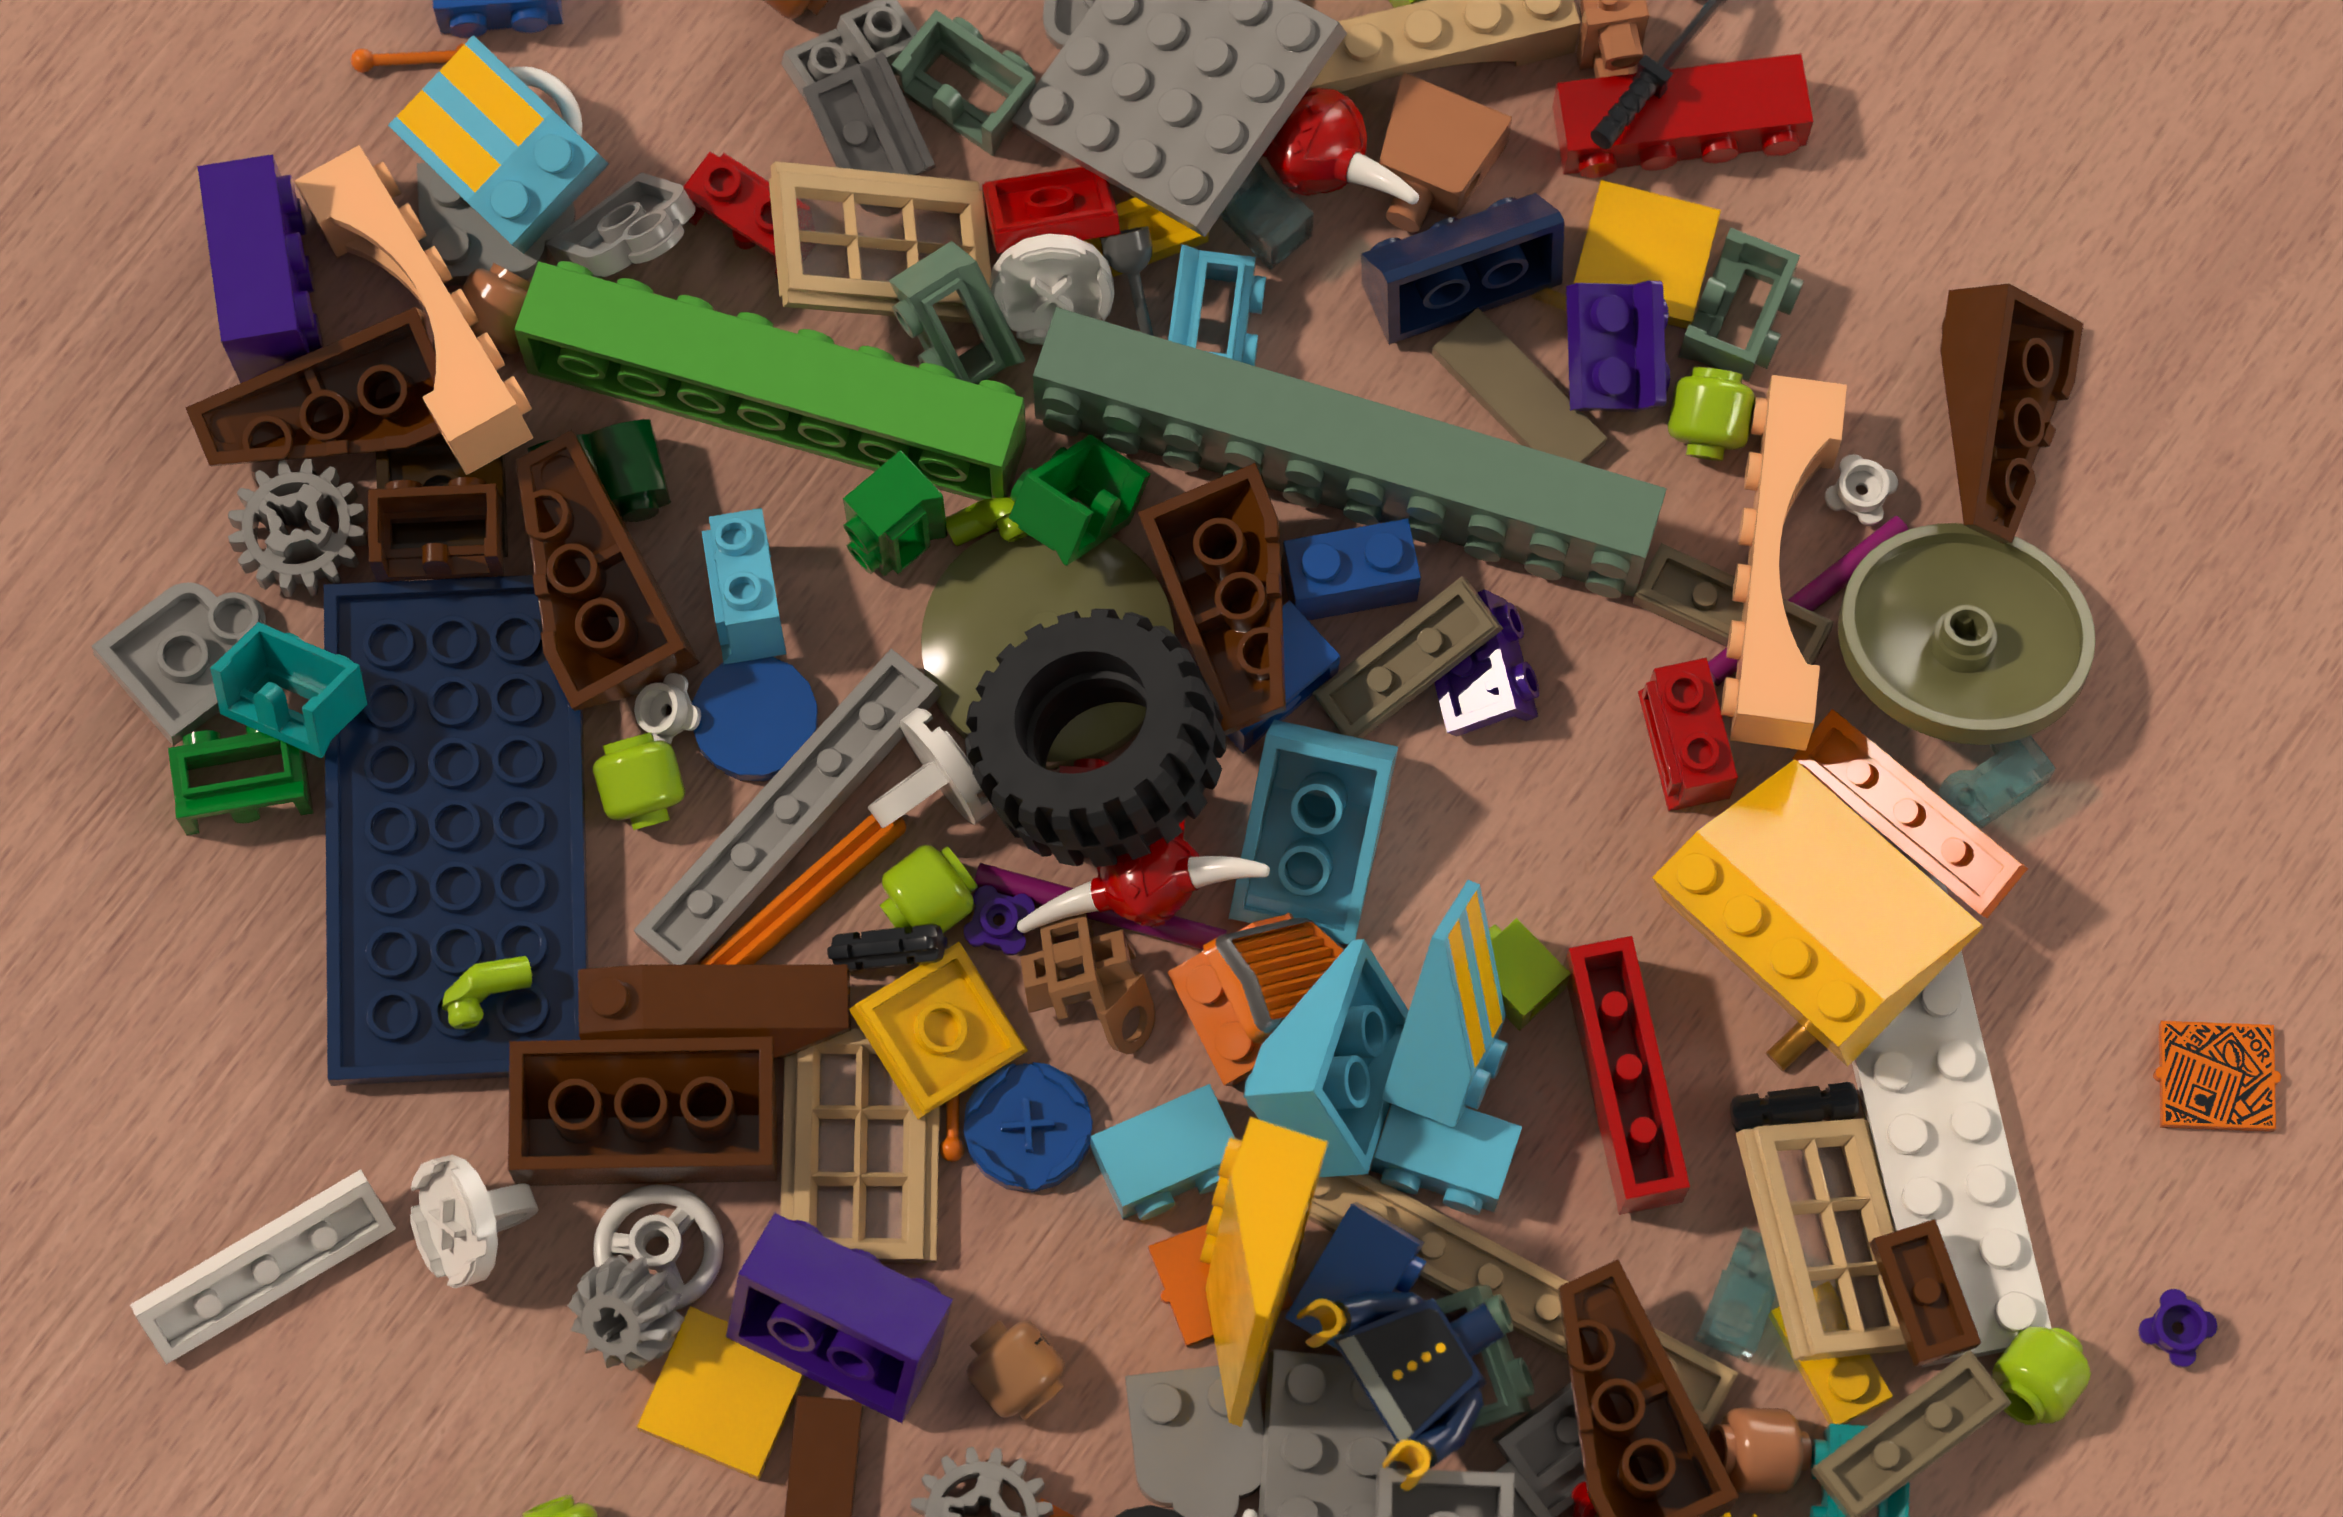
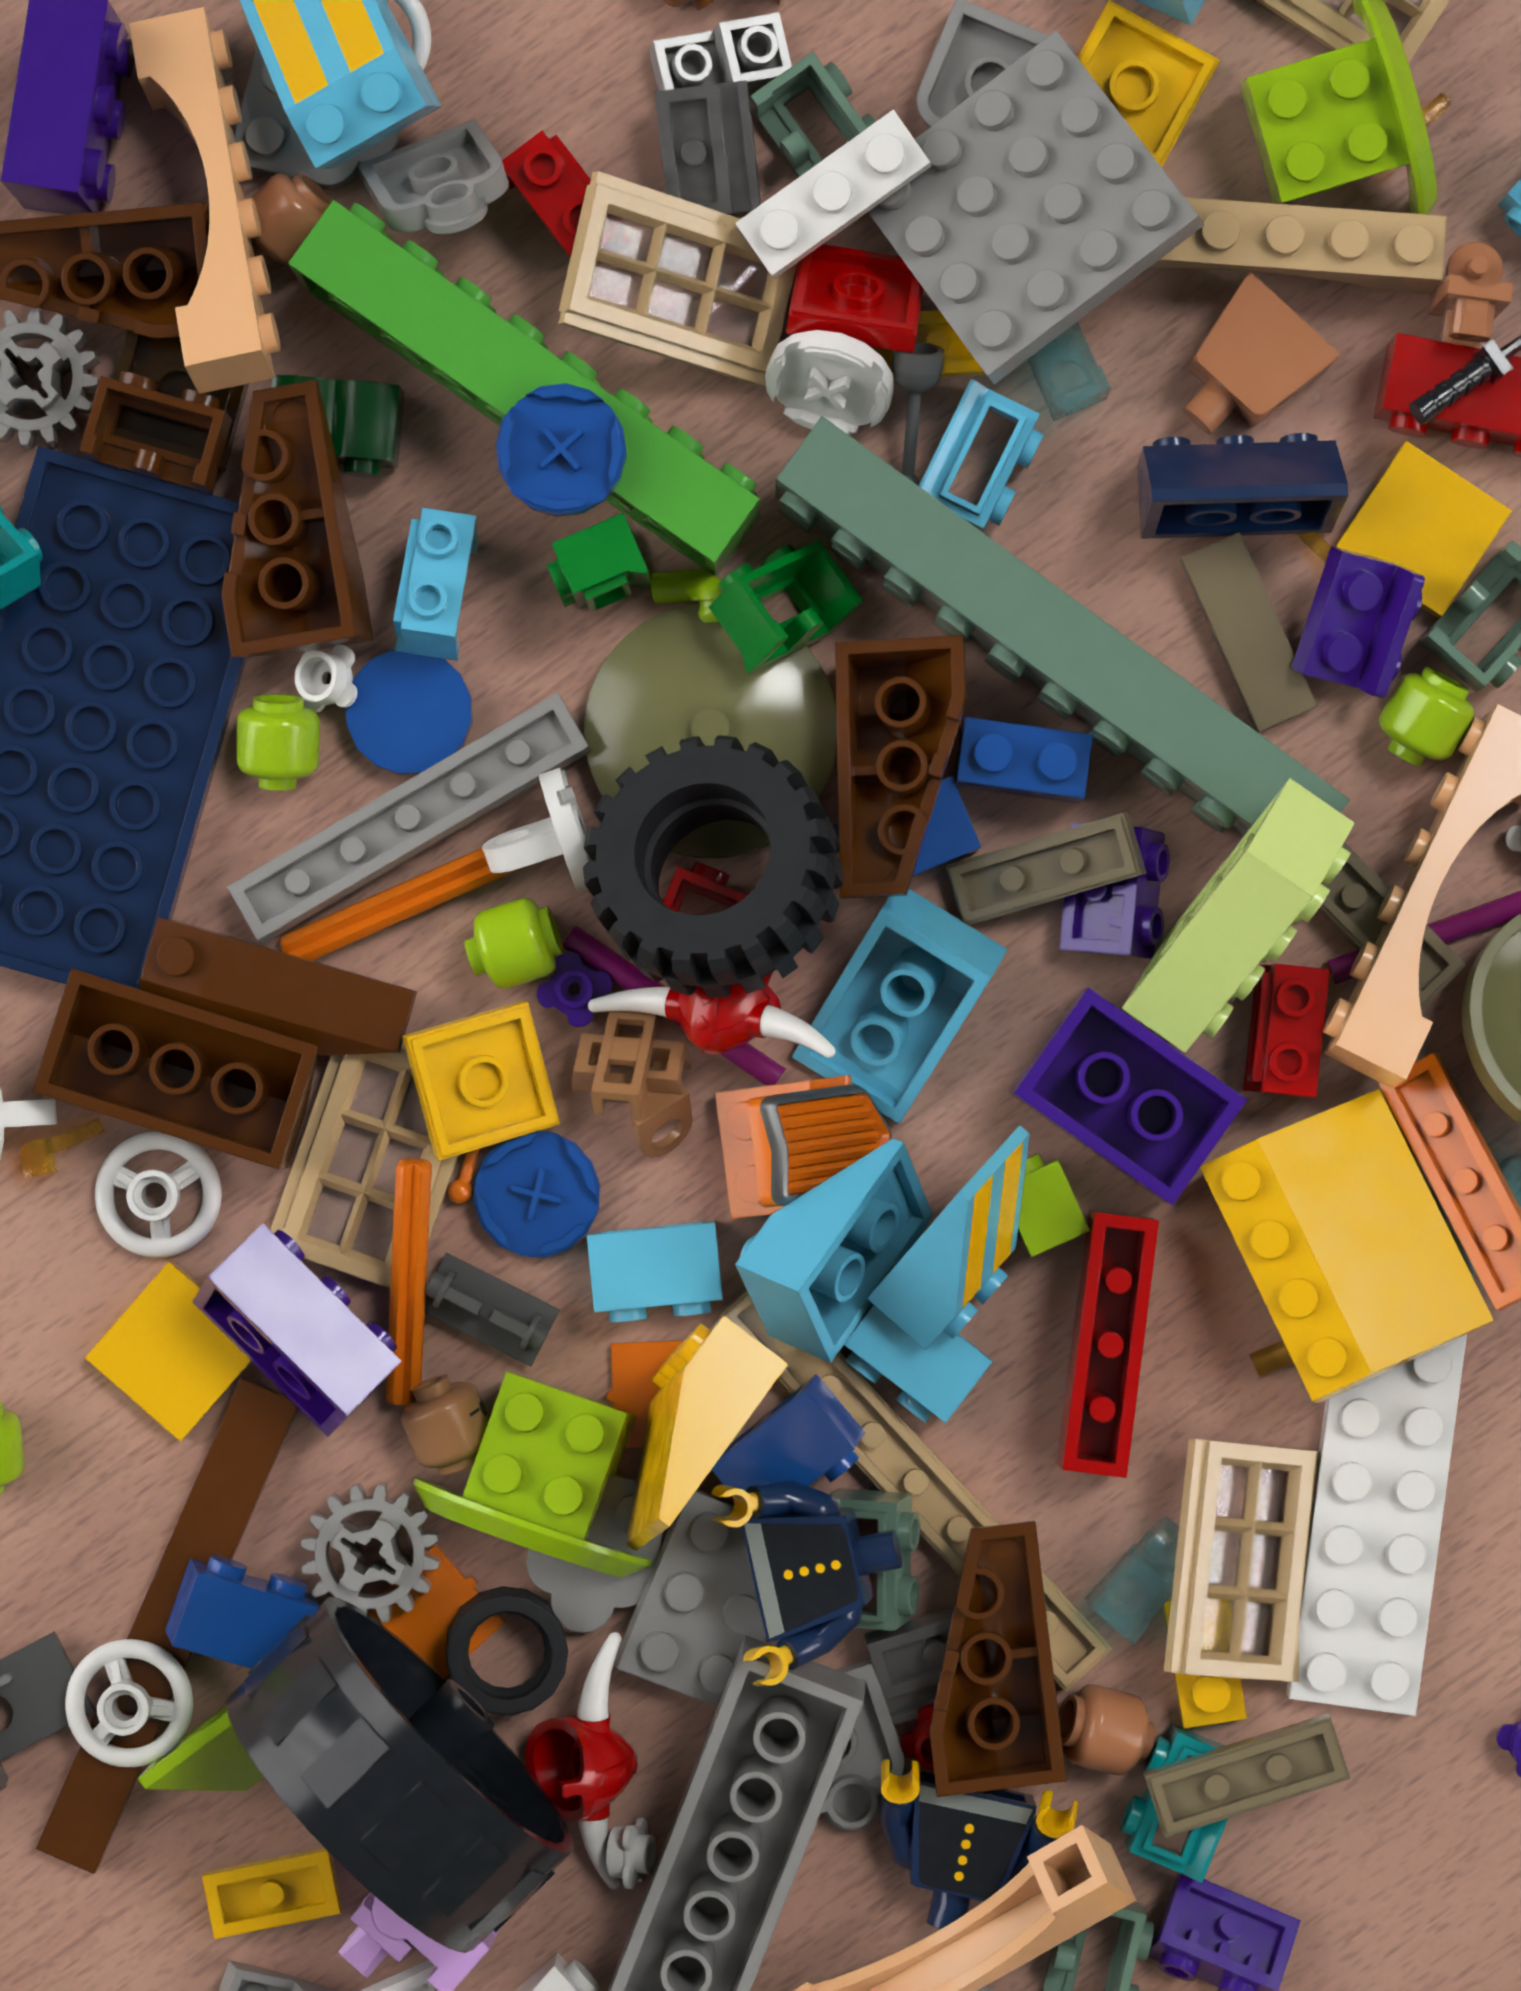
camera: 20 degrees right, 15 degrees up
(480, 981) = (67, 894): lime arm -> none
(529, 1246) = (39, 1157): none -> clear yellow hand
(626, 1312) = (104, 1254): light grey gear -> none
(825, 411) = (561, 450): none -> blue tile
(888, 947) = (459, 986): black axle -> none
(931, 281) = (711, 345): sand green window -> none
(931, 1233) = (409, 1276): none -> orange axle
(997, 123) = (833, 194): none -> white plate
(1017, 1251) = (489, 1309): none -> dark grey hinge
(1126, 1377) = (543, 1475): none -> lime piece
(1326, 149) = (1147, 328): red helmet -> none
(1560, 840) = (1128, 1096): none -> dark purple brick
(1606, 625) = (1242, 917): none -> yellowish green brick
(1795, 1106) = (1256, 1417): black axle -> none
(1925, 1293) = (1310, 1644): reddish brown plate -> none
(2042, 1374) = (1390, 1748): lime head -> none

